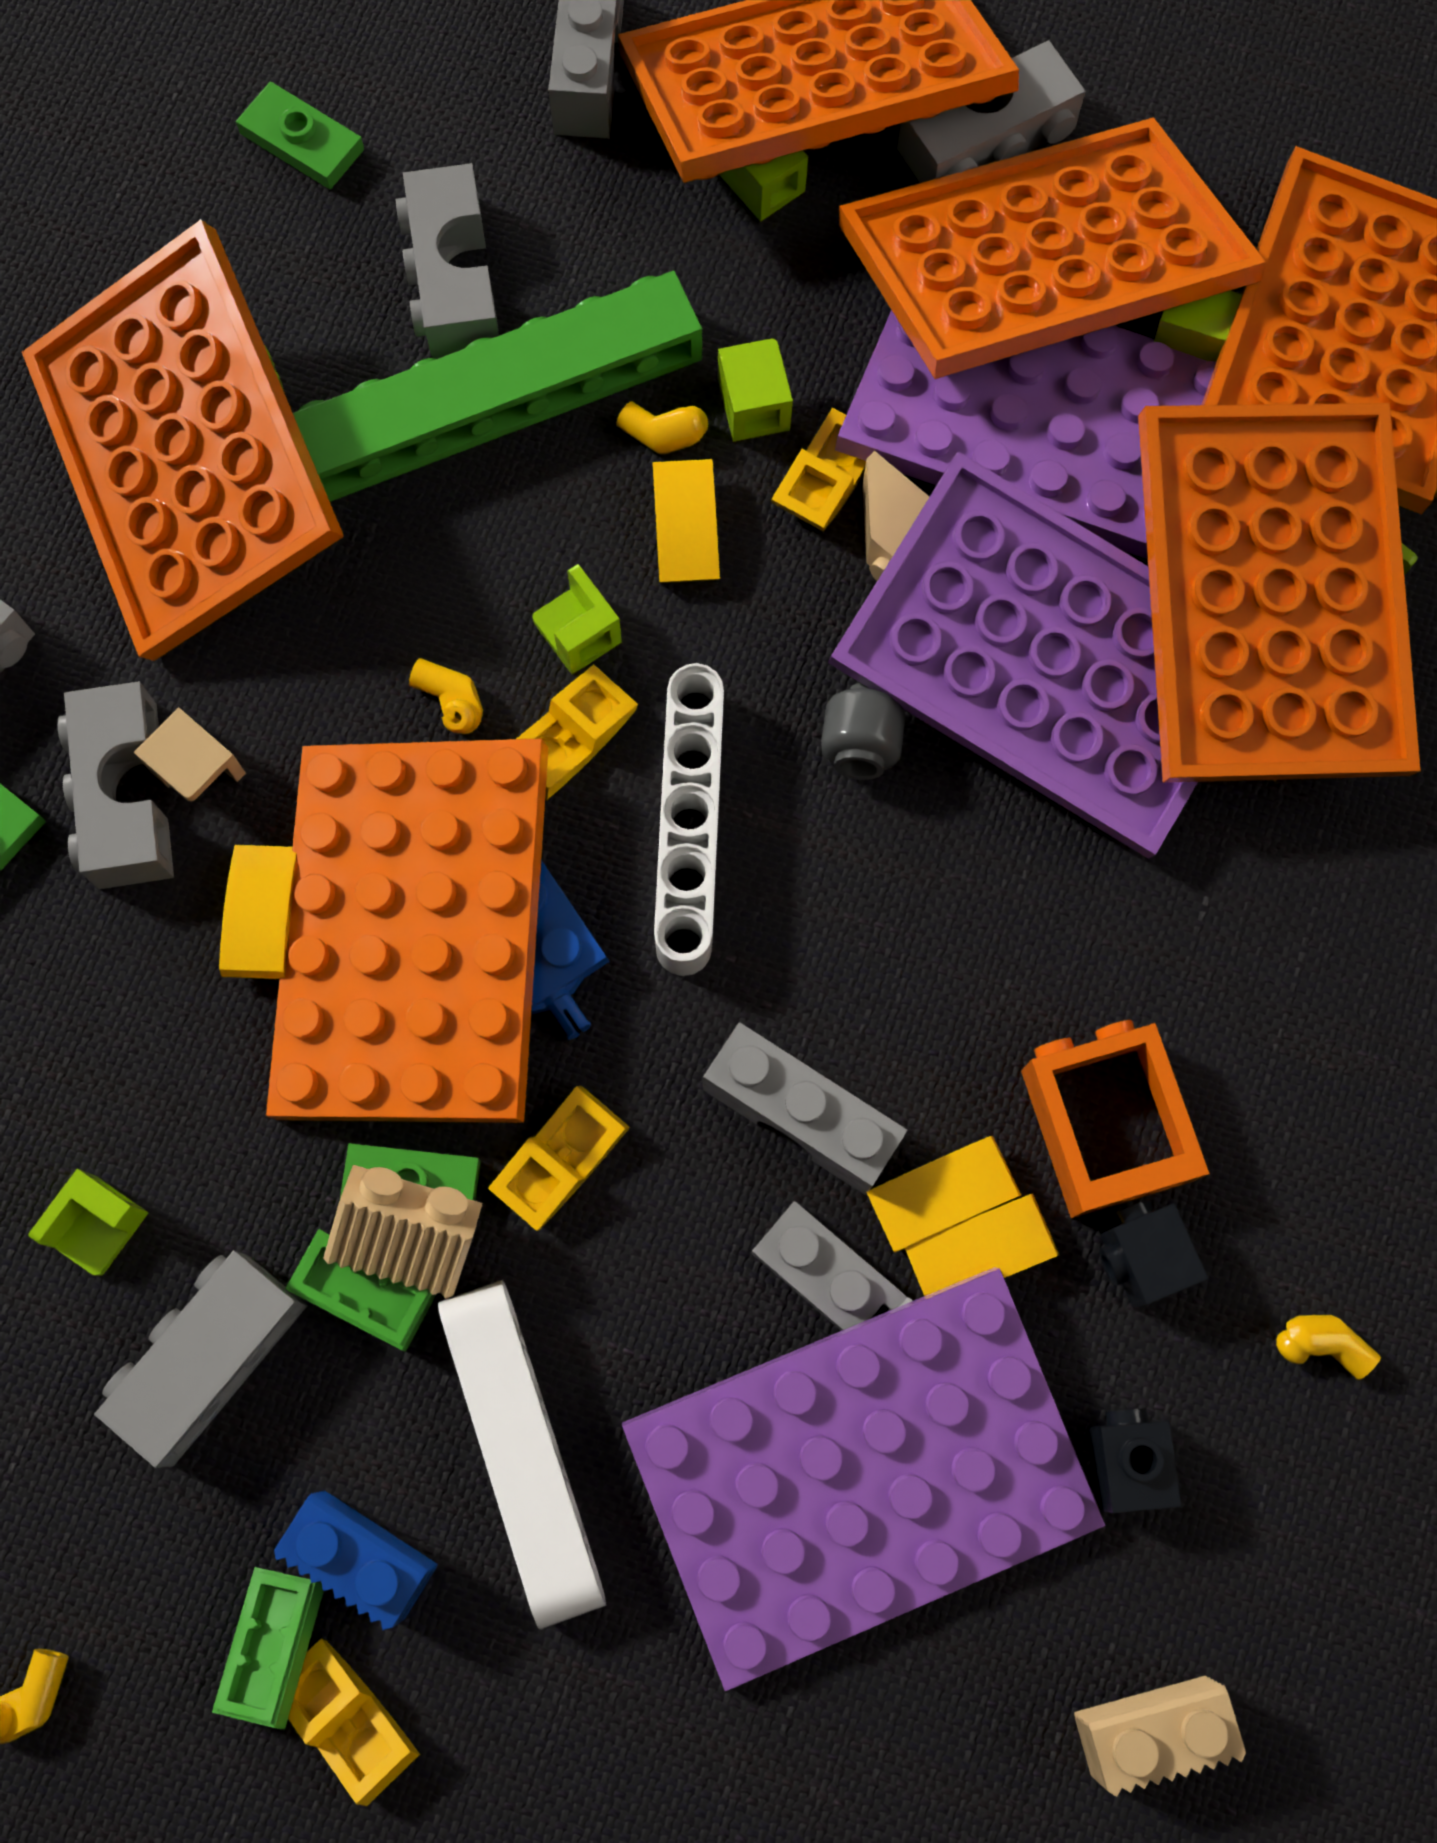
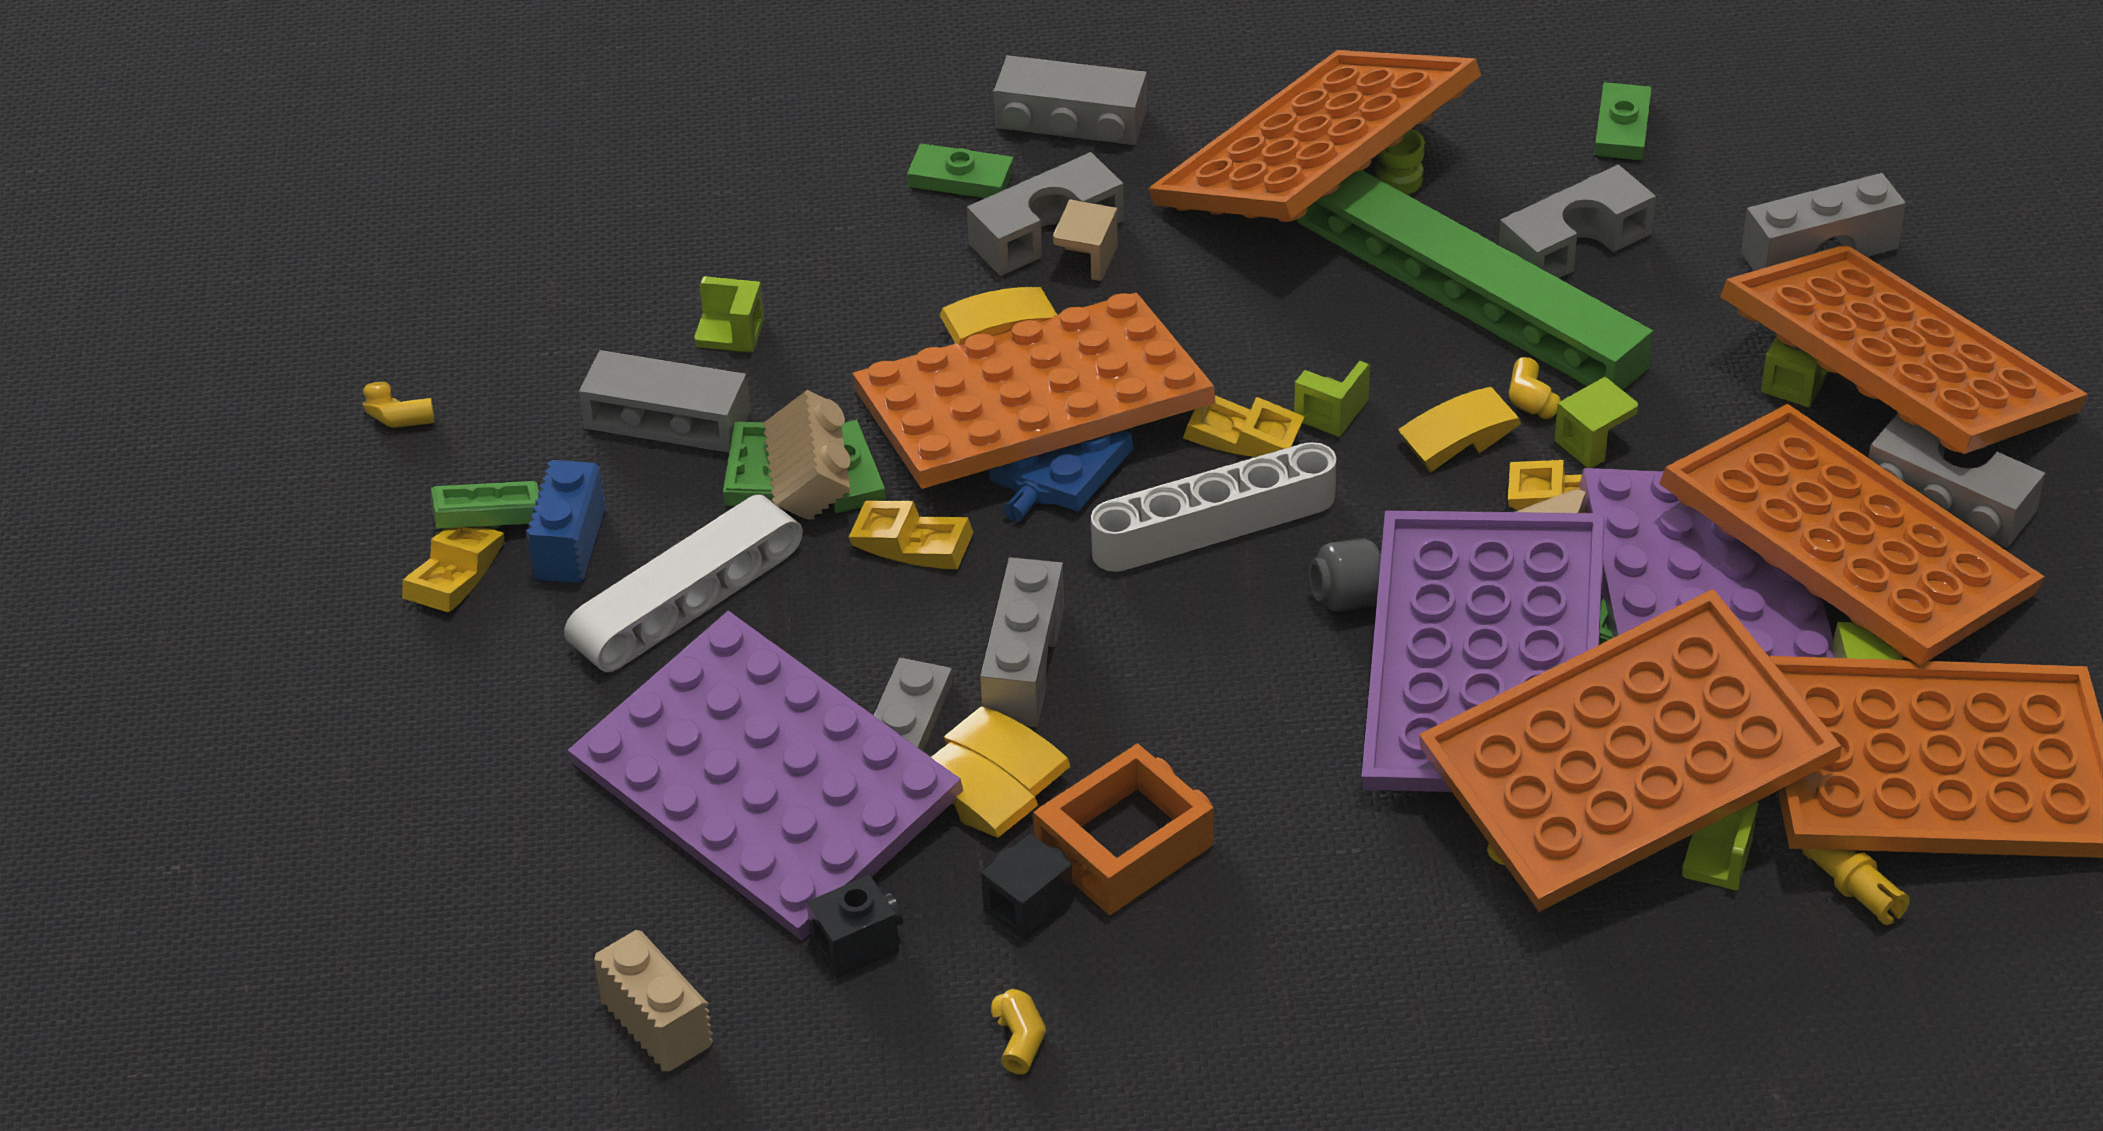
camera: 70 degrees right, 30 degrees down
(455, 693) = (1231, 359): yellow arm -> none

